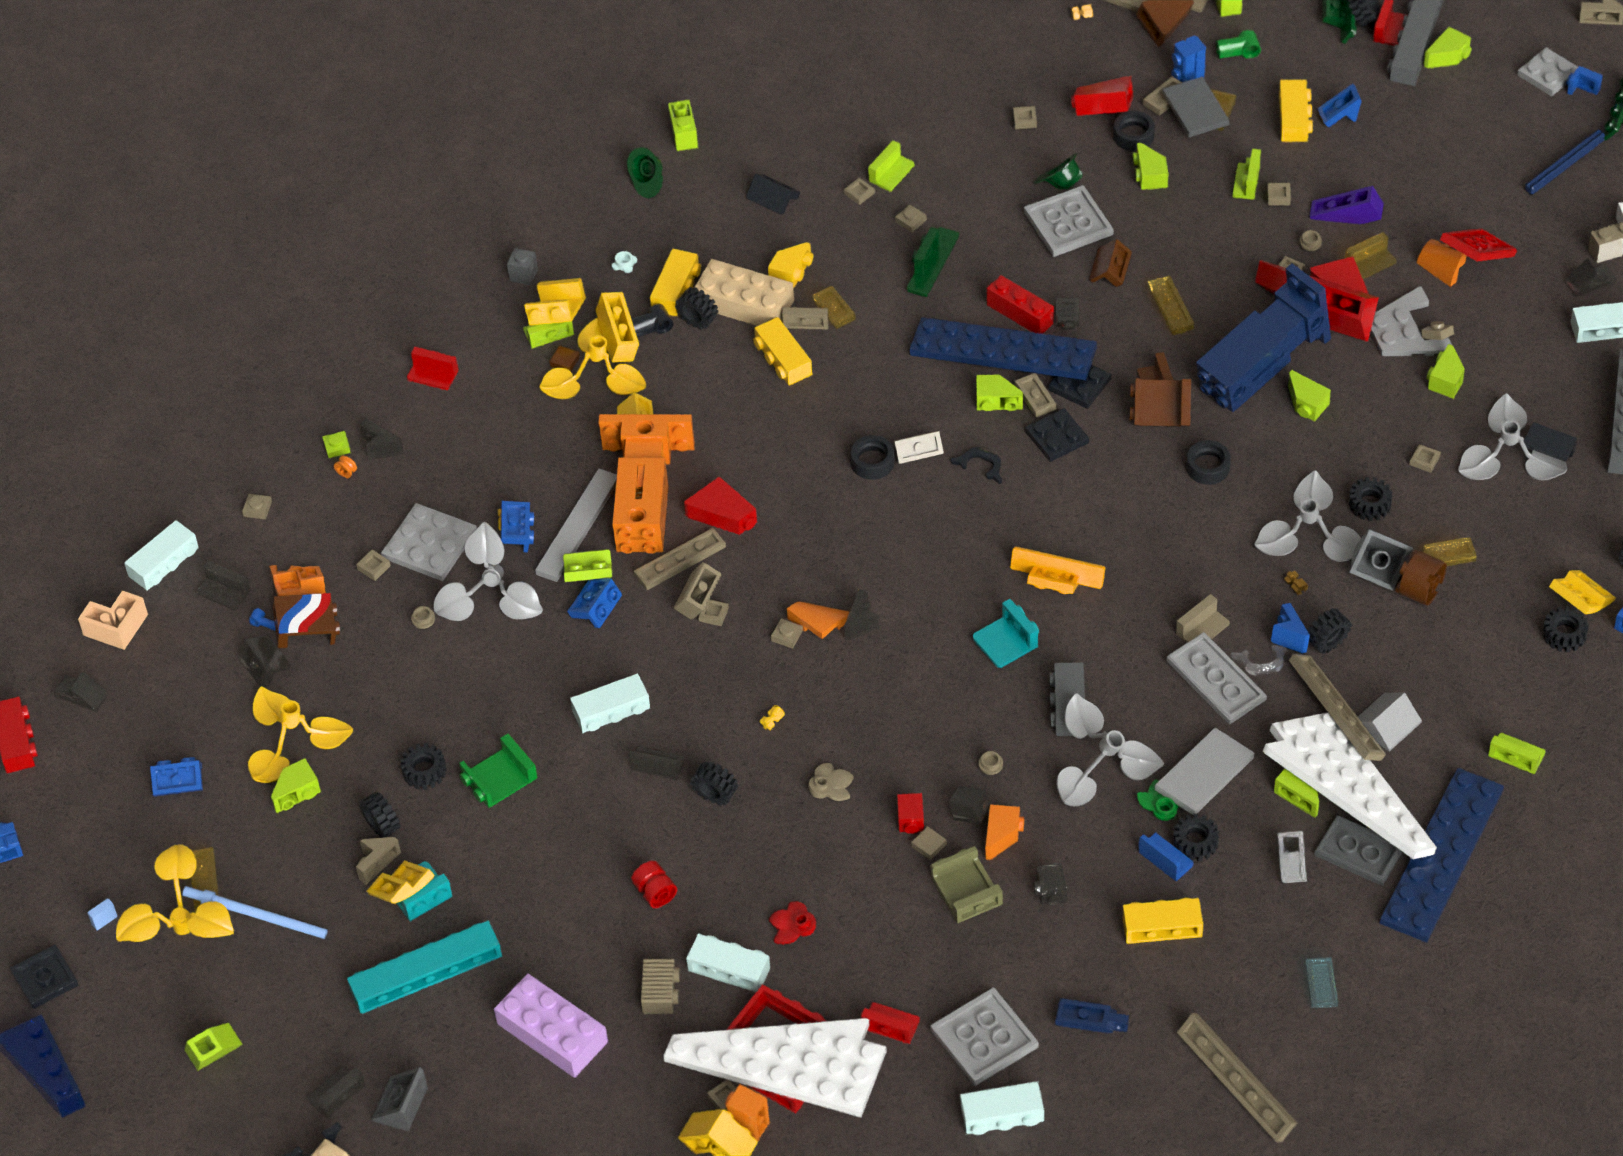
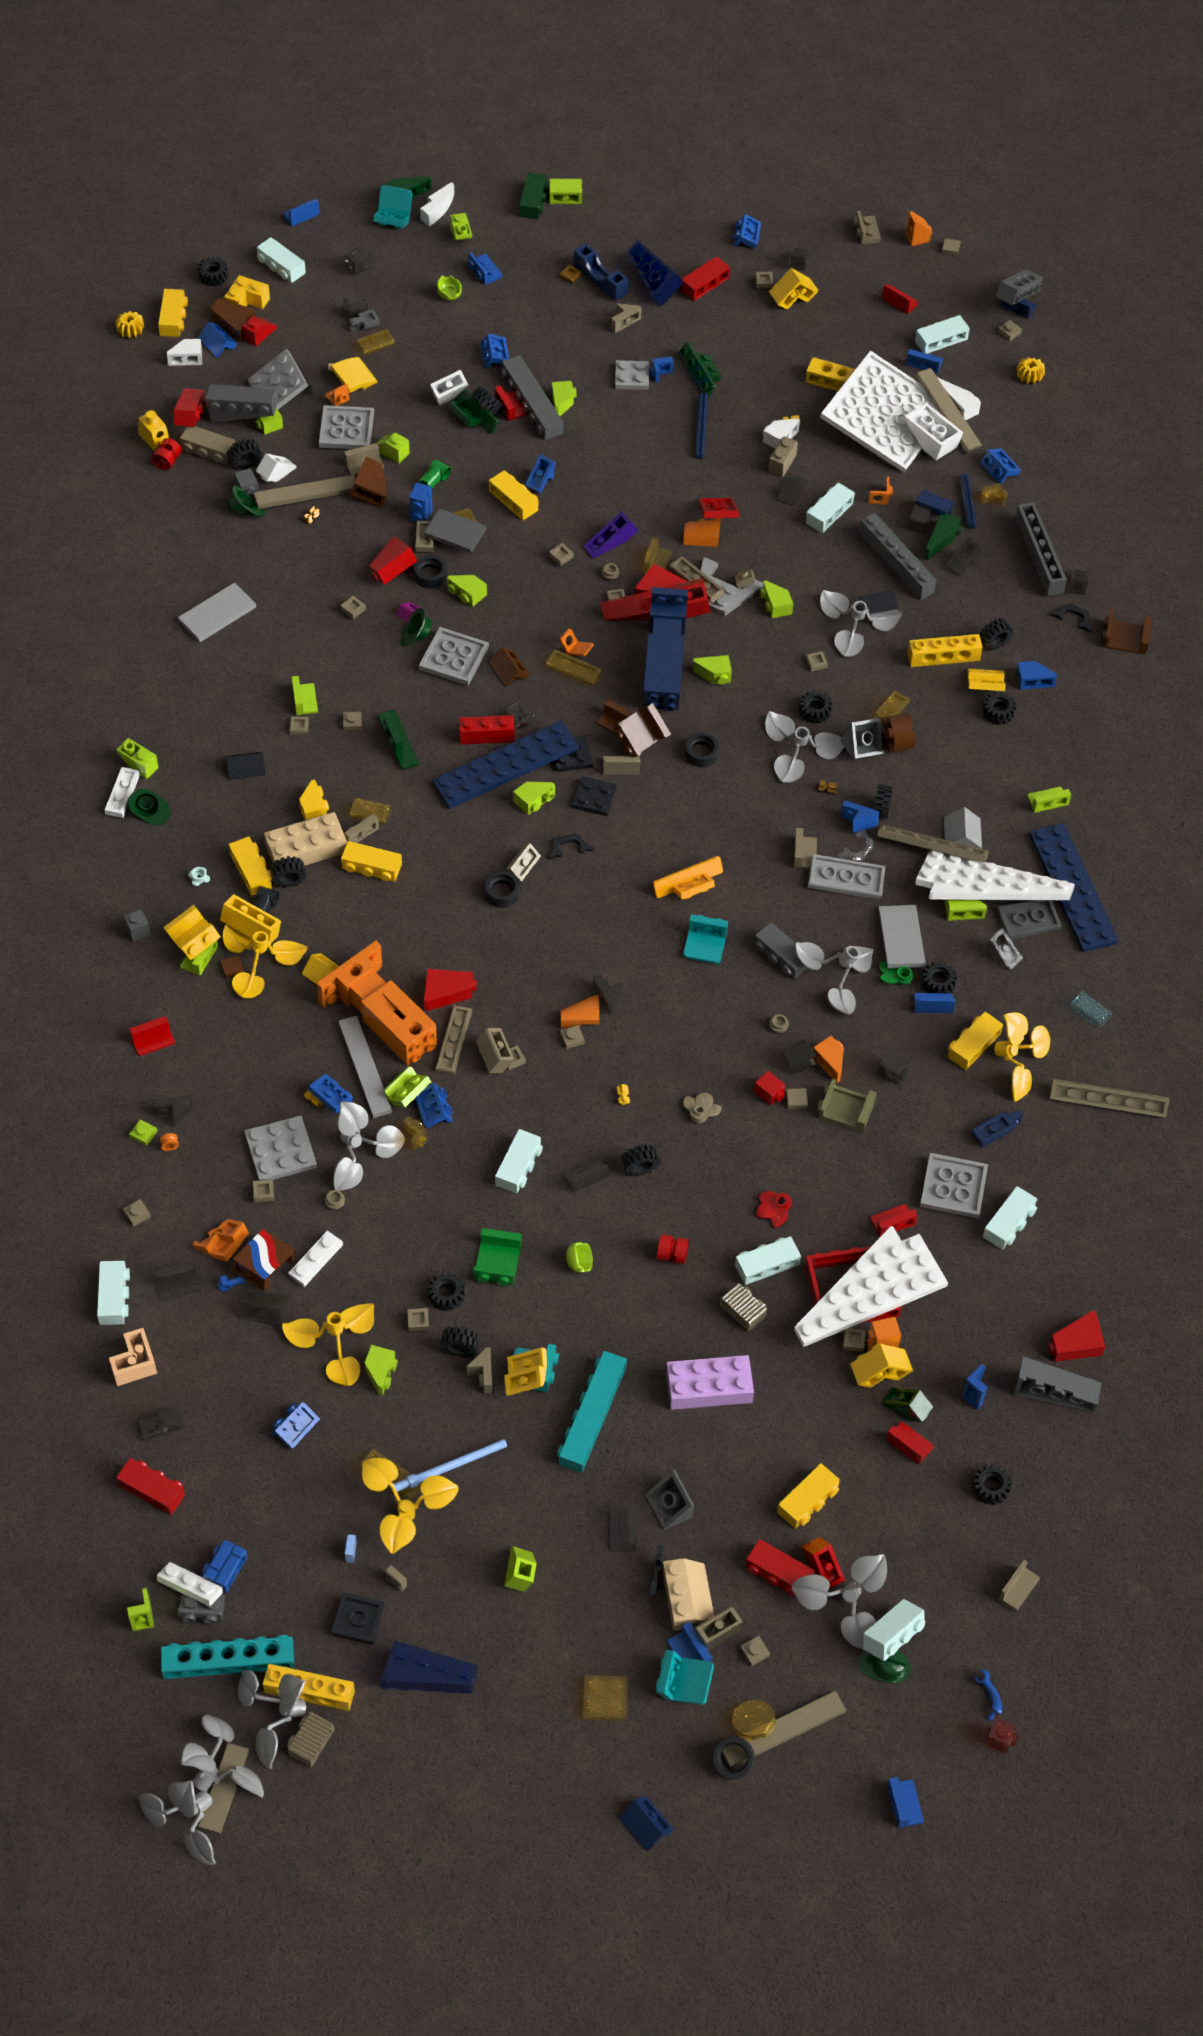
camera: 50 degrees left, 5 degrees up
(108, 969) = (396, 1578): none -> dark tan tile
(352, 655) = (315, 1258): none -> white plate
(373, 771) = (418, 1319): none -> dark tan plate
(551, 618) = (417, 1131): none -> clear yellow bracket
(565, 826) = (579, 1257): none -> lime hair
(653, 140) = (121, 792): none -> white plate
(899, 45) = (217, 612): none -> light grey tile
(1035, 395) = (563, 781): dark tan plate -> none
(1082, 155) = (405, 611): none -> magenta slope
(1113, 423) = (621, 765): none -> dark tan panel
(1182, 928) = (1016, 1028): none -> yellow plant
(1197, 289) = (575, 648): none -> orange bracket
(1247, 176) = (533, 554): lime bracket -> none
(1386, 311) = (689, 572): none -> dark tan tile
(1569, 534) = (944, 650): none -> yellow brick

